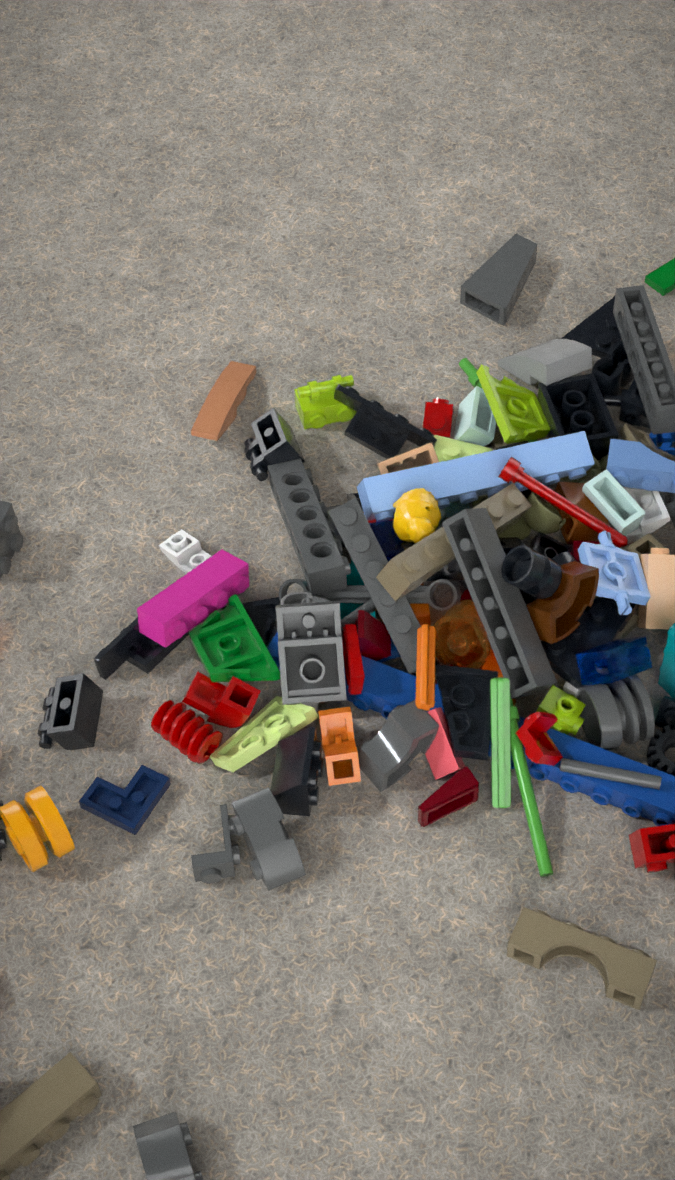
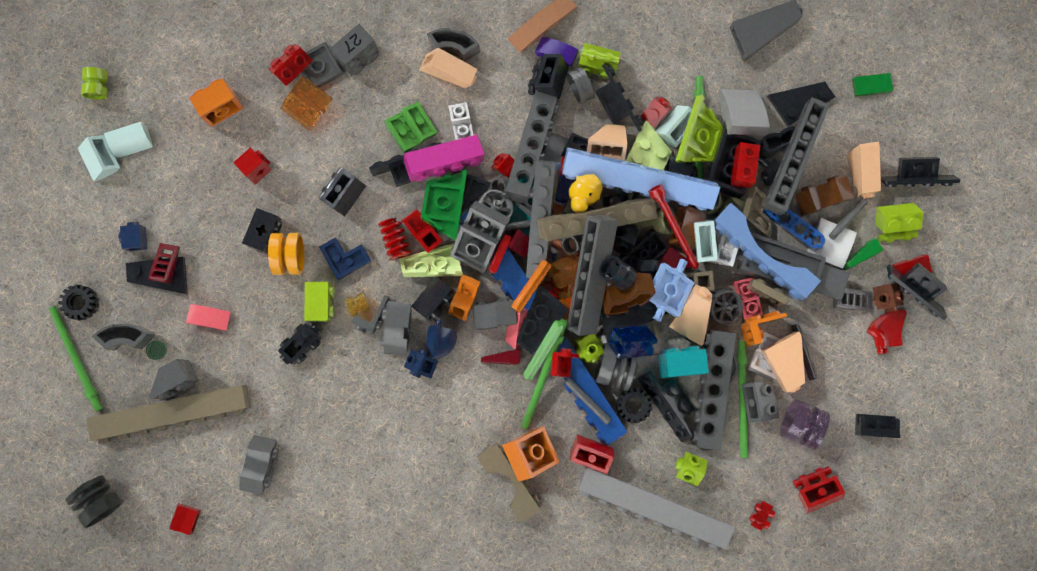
camera: 25 degrees right, 30 degrees up
(119, 595) = (410, 127): none -> bright green slope
(121, 472) = (454, 43): none -> dark grey brick
(124, 872) = (318, 302): none -> lime brick
(129, 943) = (304, 339): none -> black brick
(131, 501) = (448, 68): none -> light nougat slope
(187, 843) = (357, 304): none -> clear yellow wheel
(244, 419) = (553, 46): none -> dark purple slope
(282, 568) = (503, 164): none -> red bracket
(321, 433) = (580, 85): none -> dark grey wheel
(335, 867) = (420, 363): none -> dark blue brick
(341, 817) = (440, 340): none -> dark blue piece
(583, 890) = (531, 454): none -> orange brick
(595, 398) = (745, 165): none -> red brick

